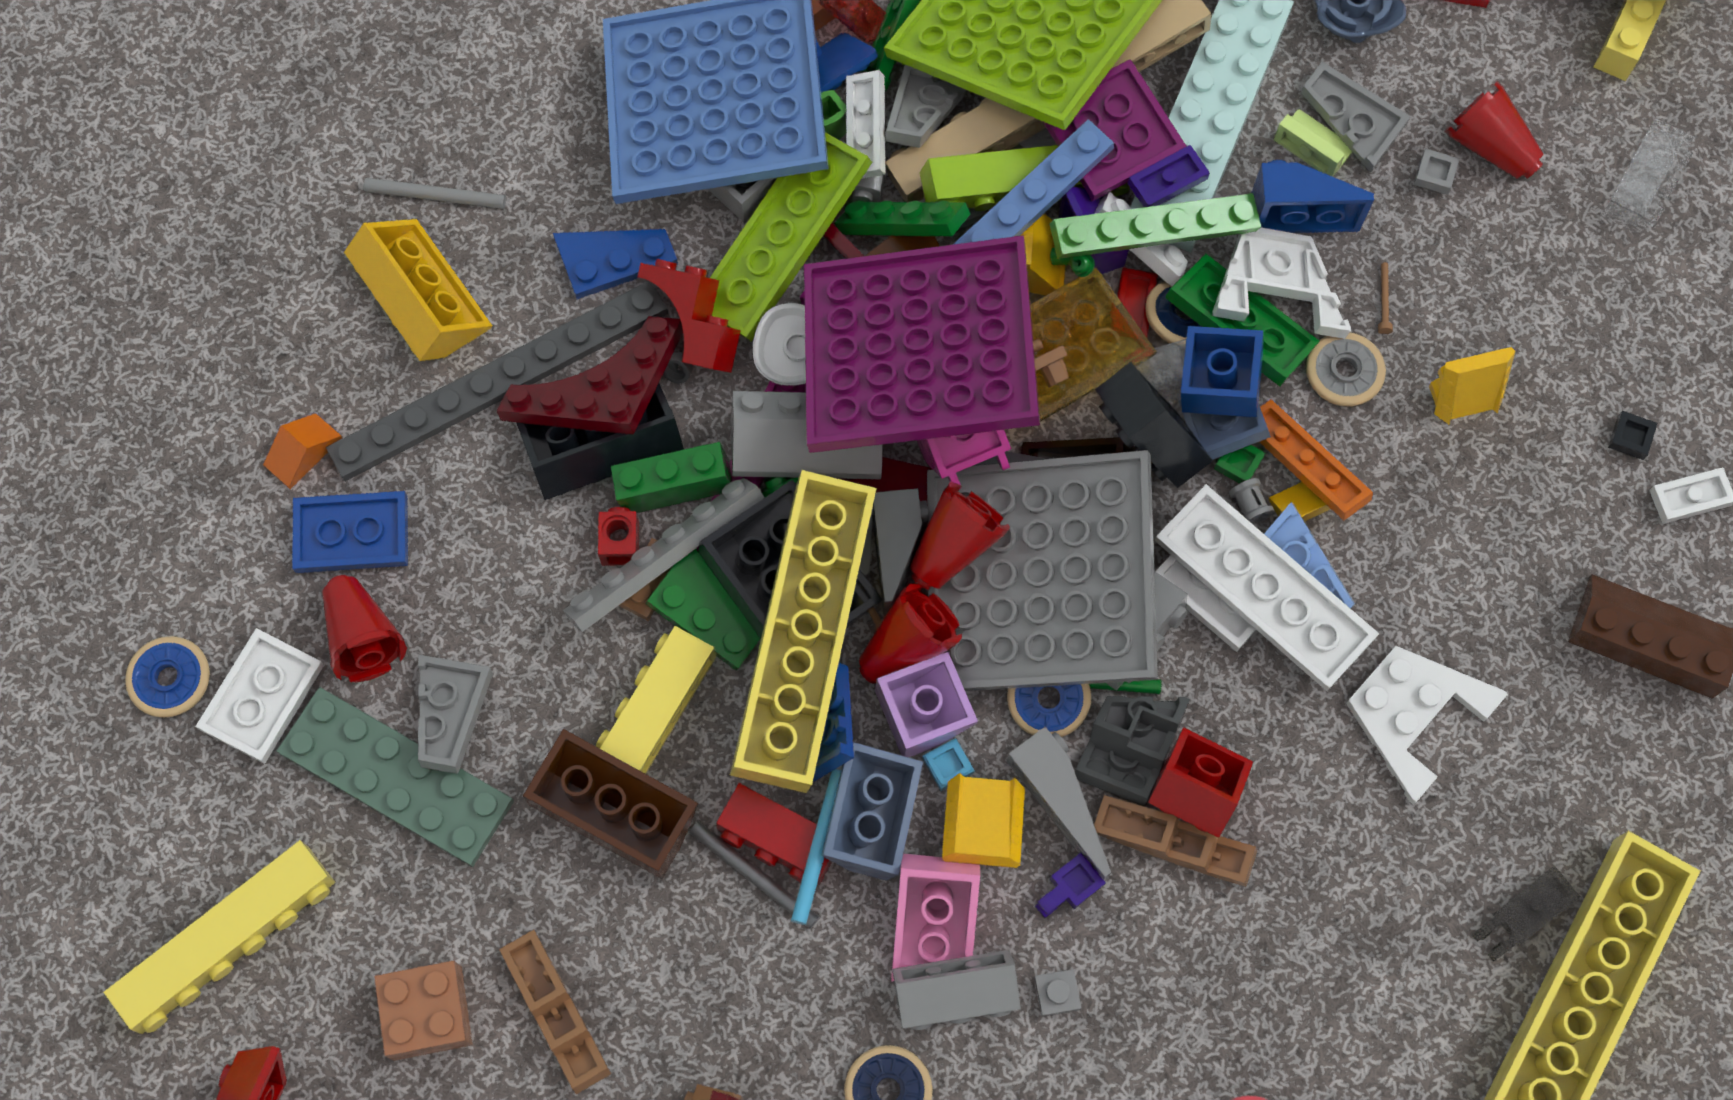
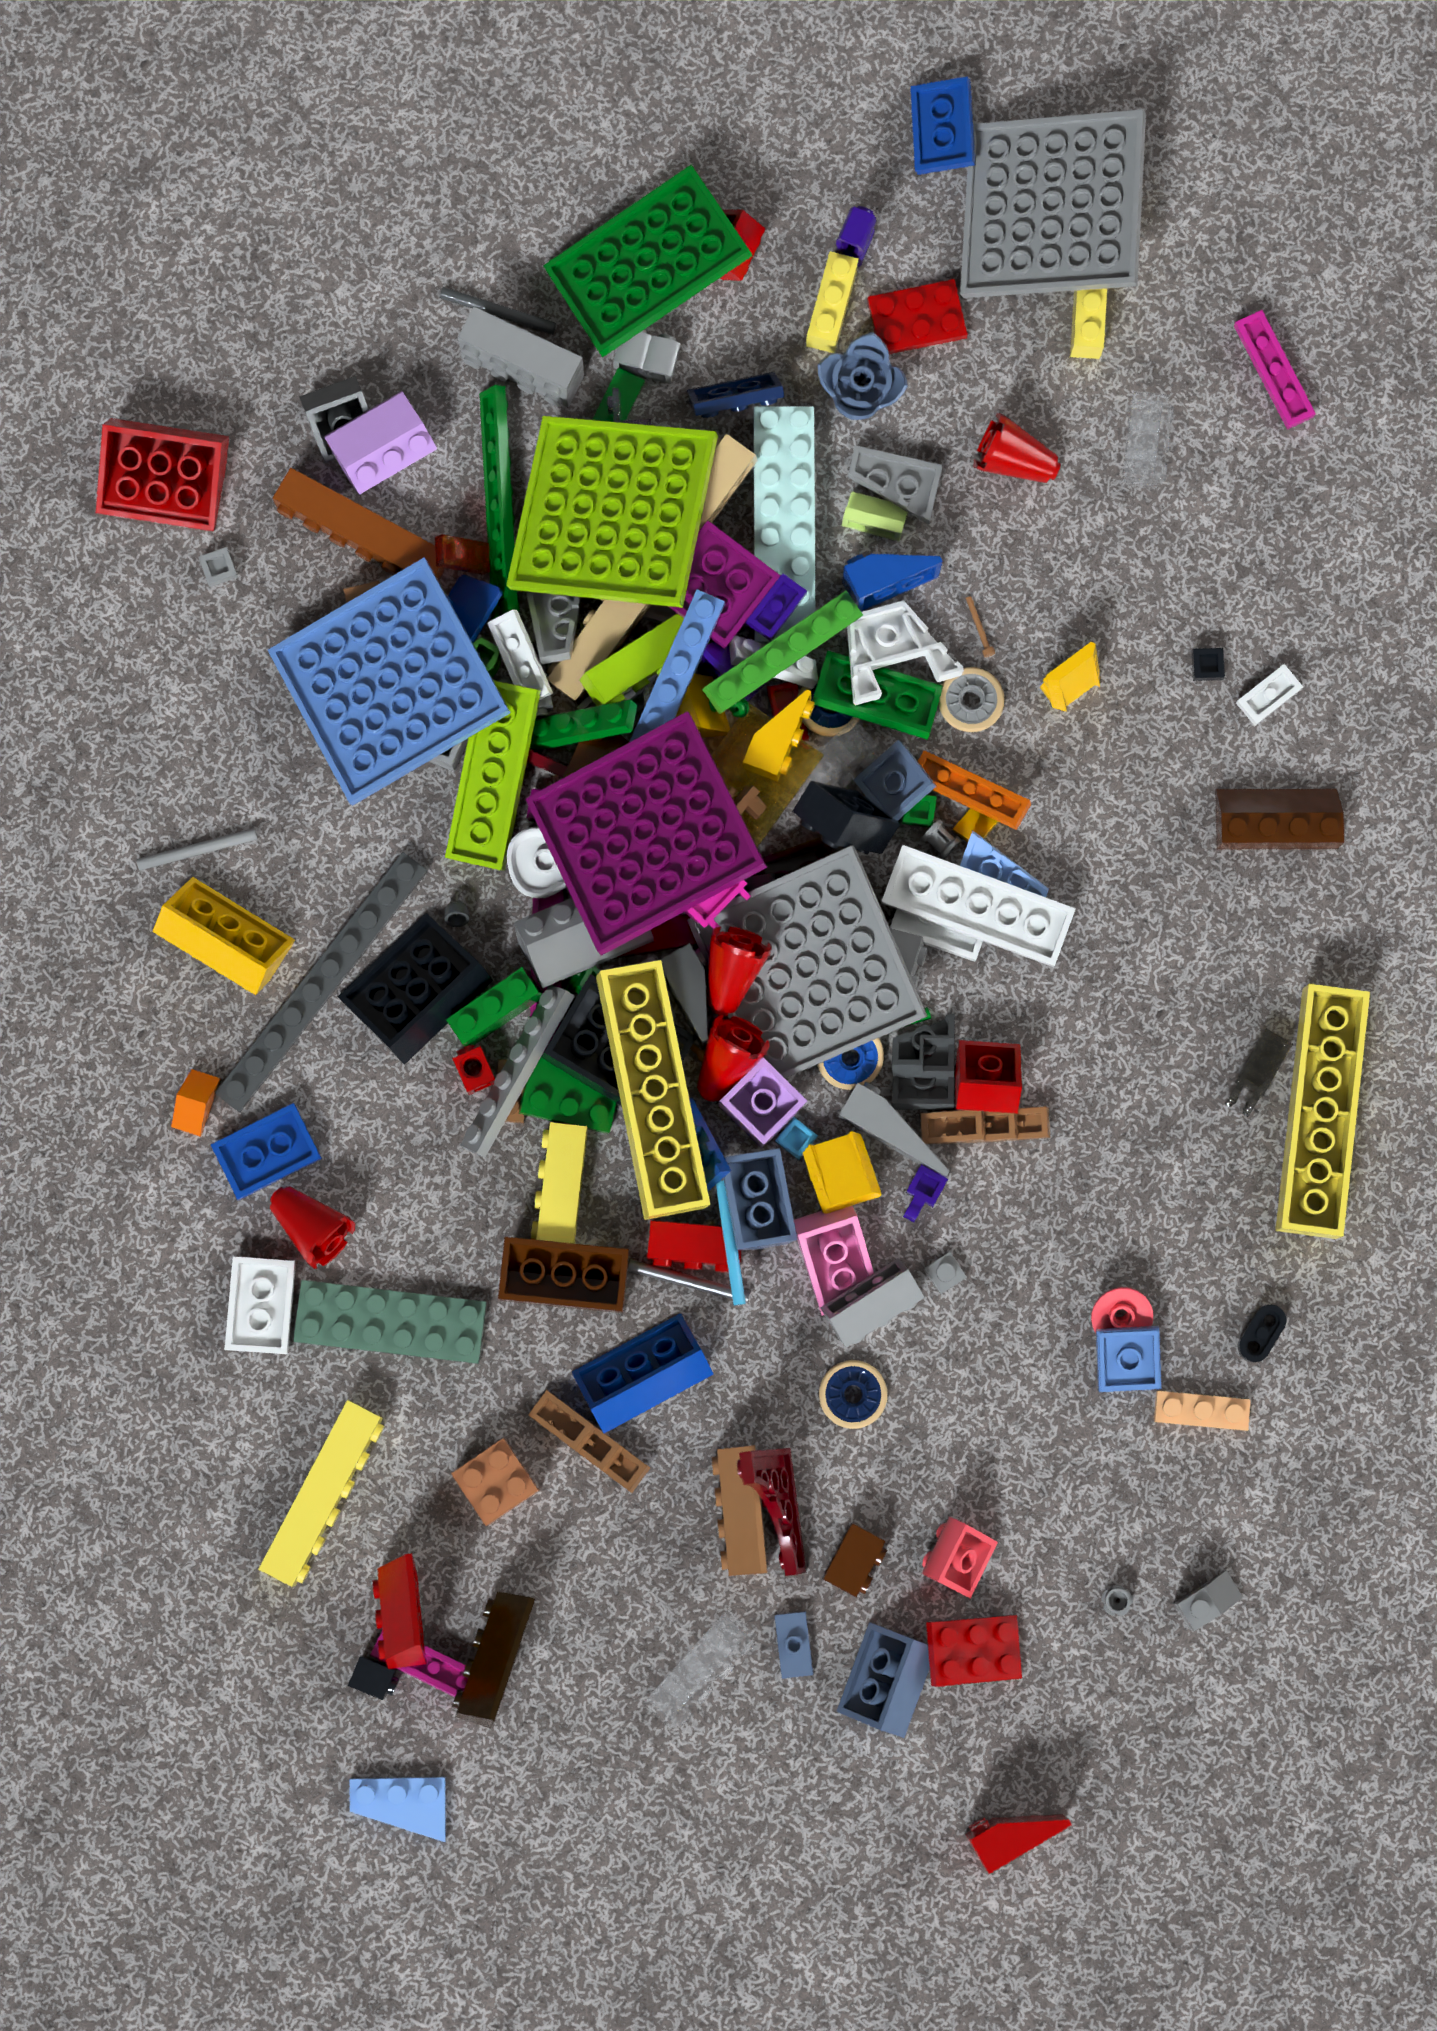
camera: 25 degrees left, 10 degrees up
(151, 660) = (201, 1320): blue wheel -> none
(449, 709) = (408, 1255): light grey wing -> none
(606, 396) = (416, 963): dark red plate -> none
(610, 257) = (363, 845): blue wing -> none
(651, 957) = (642, 1373): none -> blue slope
(706, 337) = (472, 884): red arch -> none
(1105, 312) = (773, 742): none -> yellow slope
(1222, 371) = (880, 752): blue brick -> none
(1403, 700) = (1111, 948): white wing -> none
(1436, 171) = (980, 503): light grey plate -> none

